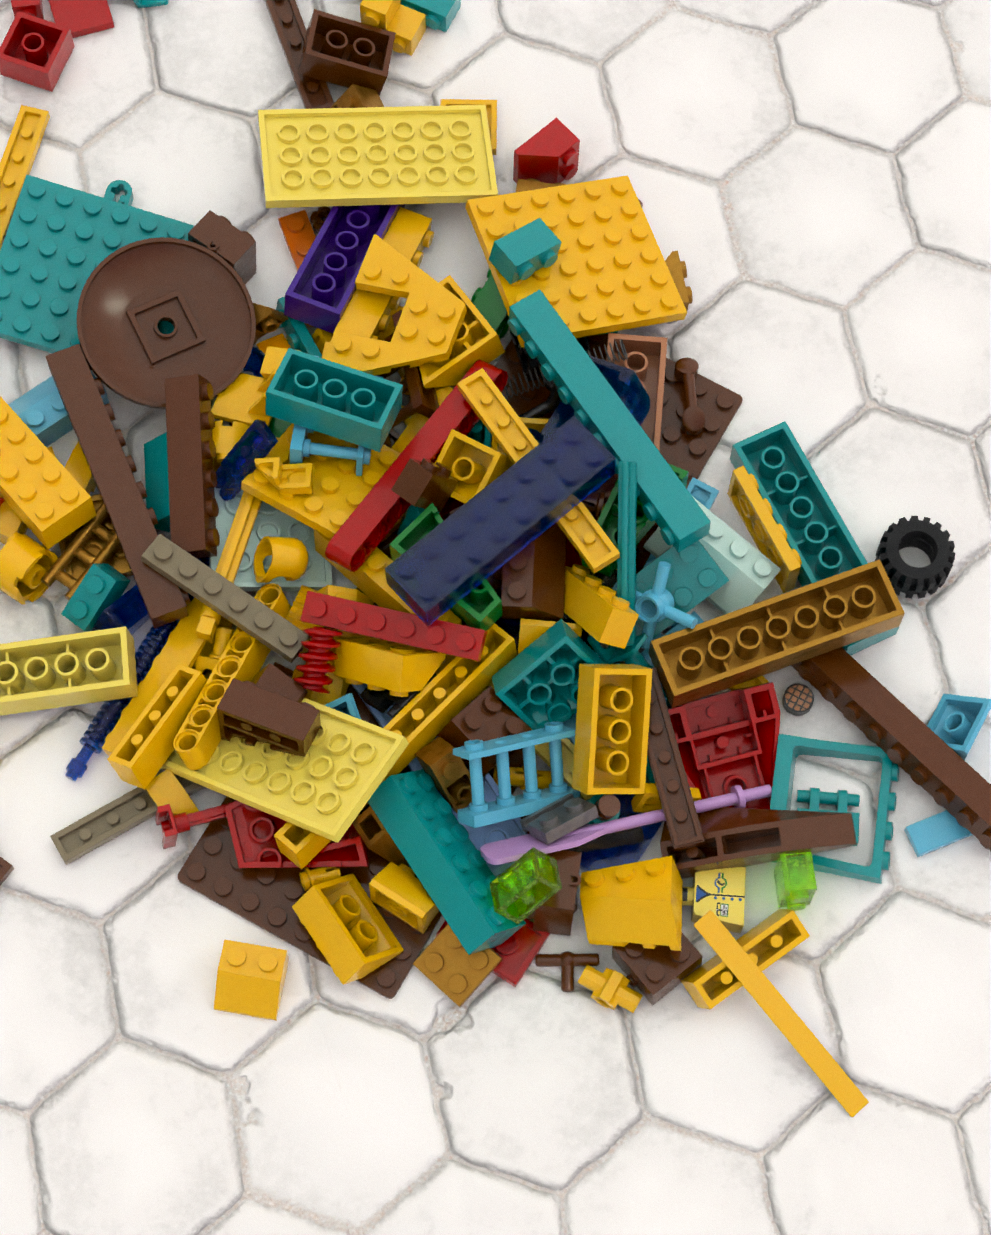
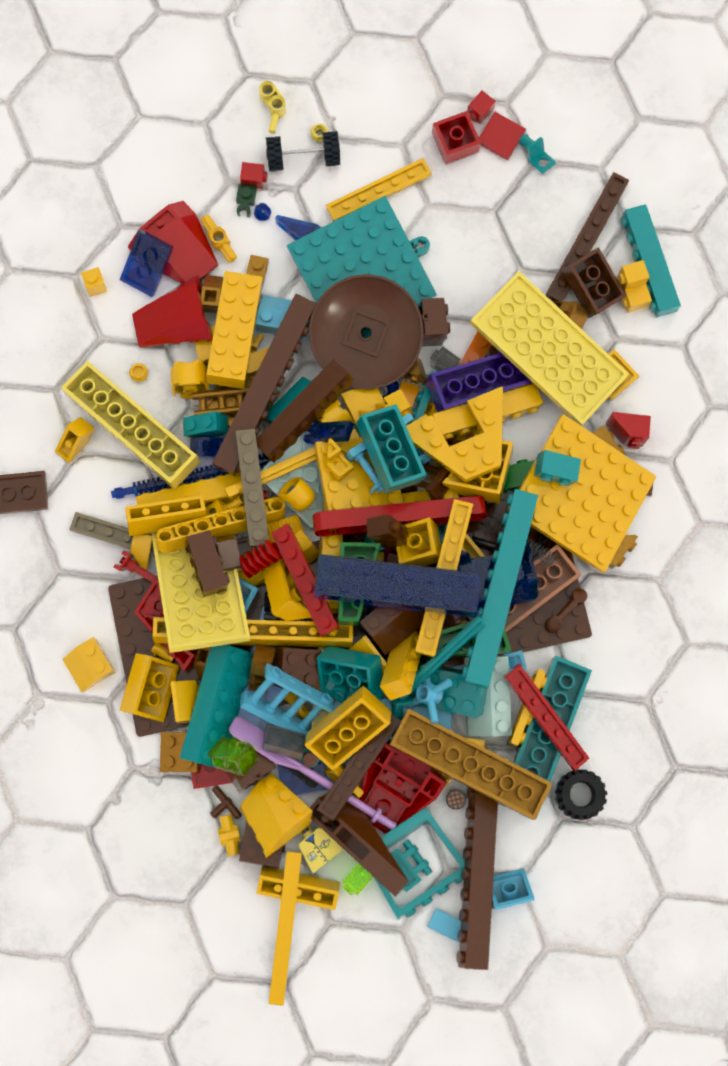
camera: 45 degrees right, 10 degrees up
(276, 279) = (444, 359): none -> clear smoke brick
(795, 509) = (546, 717): none -> red tile

